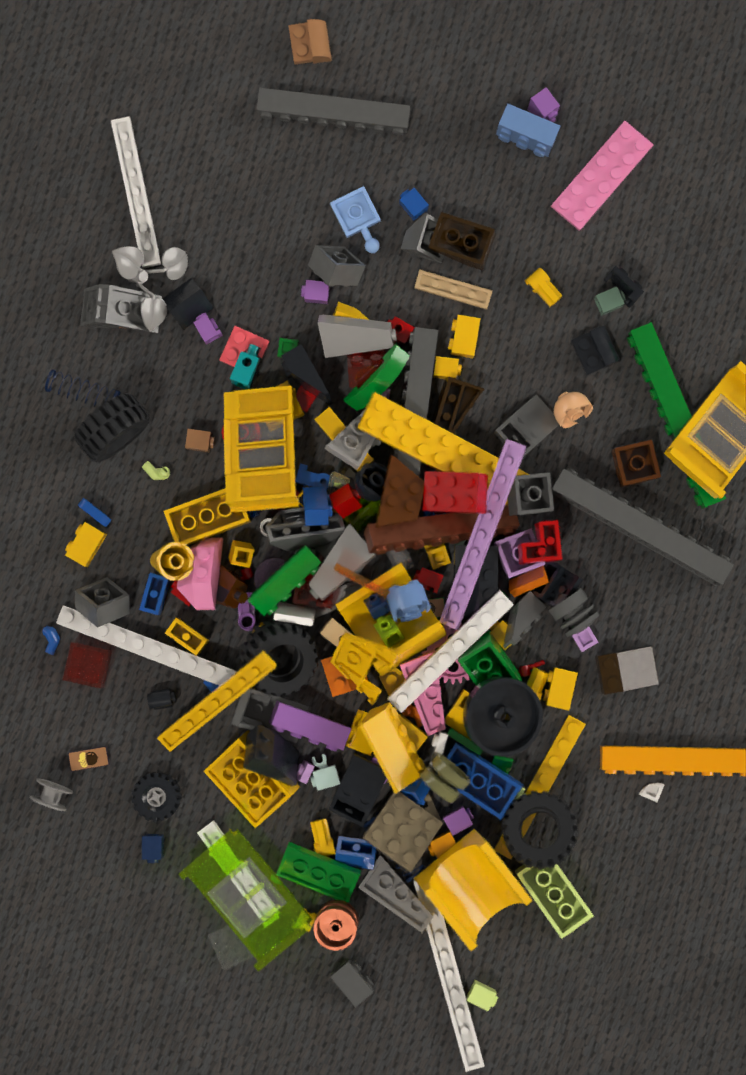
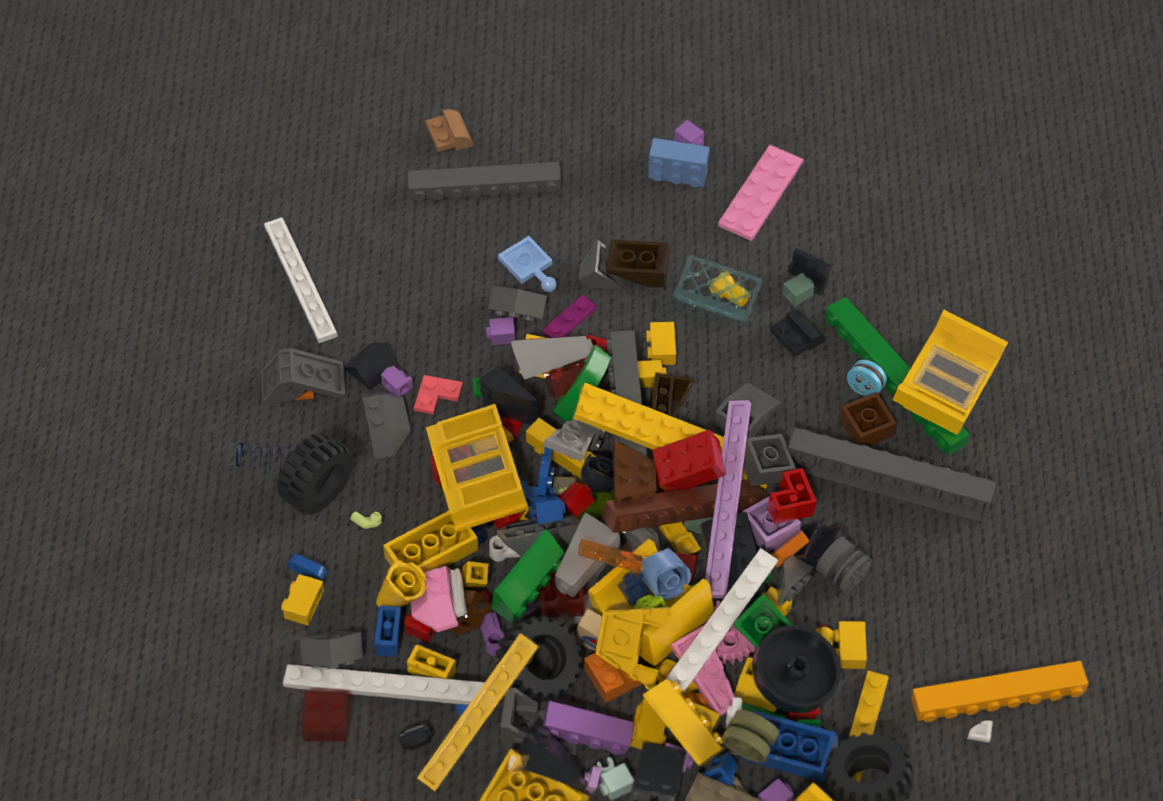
camera: 15 degrees left, 30 degrees down
(53, 639) = (282, 702): blue arm -> none
(128, 263) = (309, 321): light grey plant -> none
(189, 369) = (385, 422): none -> dark grey wedge
(199, 440) = (407, 481): medium nougat brick -> none
(221, 574) = (458, 593): none -> white axle
(242, 375) = (443, 401): teal torso -> none
(295, 614) = (558, 614): white tile -> none
(325, 463) = (546, 472): none -> blue wing
(384, 288) = (570, 318): none -> magenta plate
(413, 203) = (580, 241): blue brick -> none
(453, 289) = (639, 308): tan tile -> none
(518, 300) = (710, 304): none -> clear light blue fence
(571, 407) = (788, 382): light nougat cylinder -> none
(585, 639) = (863, 594): lavender plate -> none
(626, 670) = (914, 615): slope -> none
(647, 417) = (866, 378): none -> medium azure head

